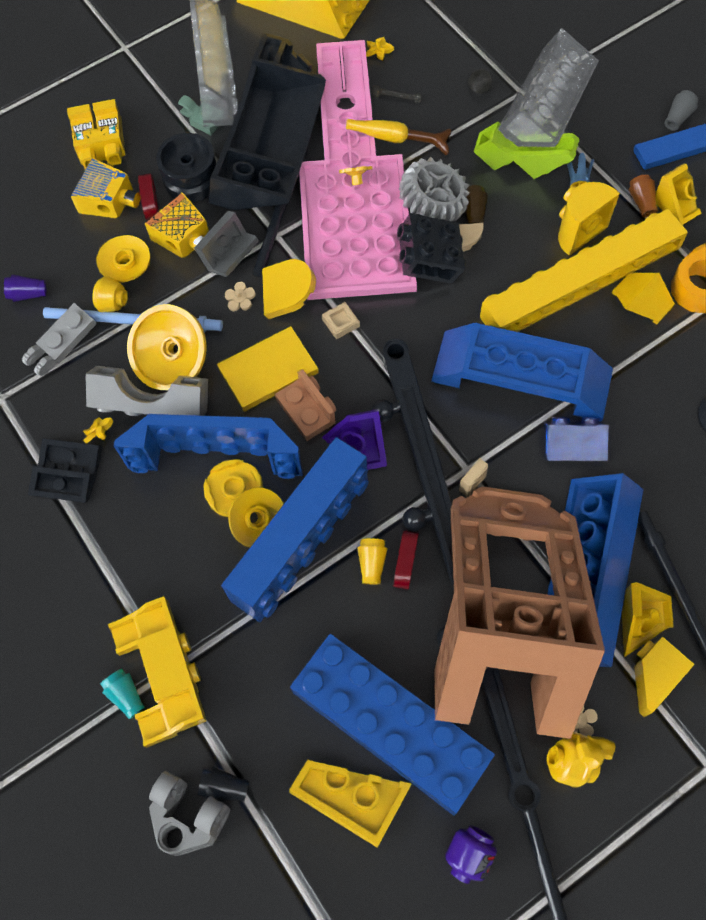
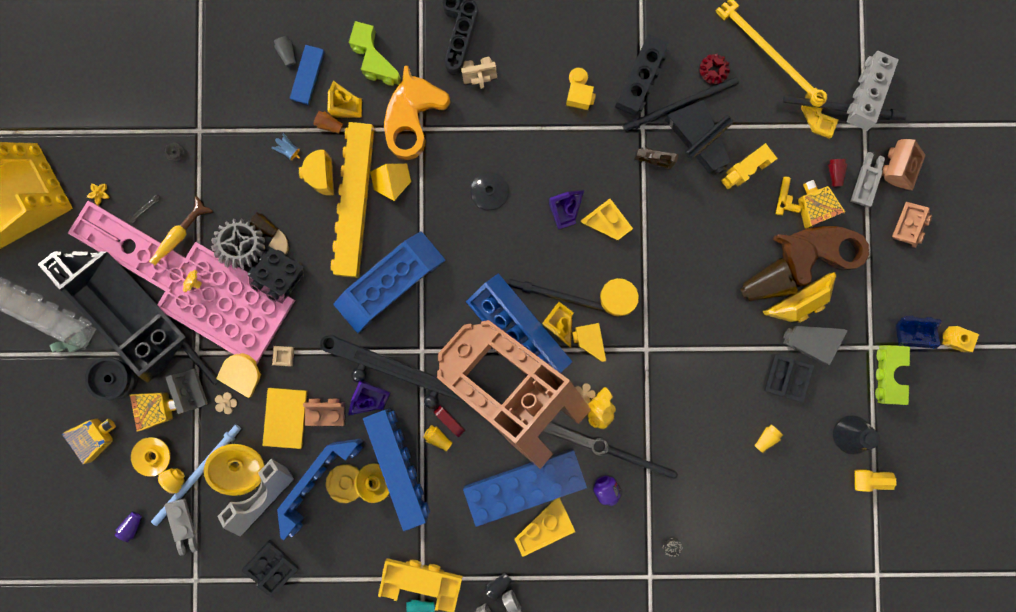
camera: 60 degrees left, 20 degrees up
(98, 138) = (40, 417): yellow hips -> none
(98, 429) = (257, 537): yellow plant -> none
(148, 195) = (113, 414): dark red beam -> none
(473, 477) = (430, 353): tan tile -> none
(536, 161) = (253, 166): lime arch -> none
(549, 93) = (219, 124): clear slope -> none
(576, 440) = (446, 283): clear blue bracket -> none

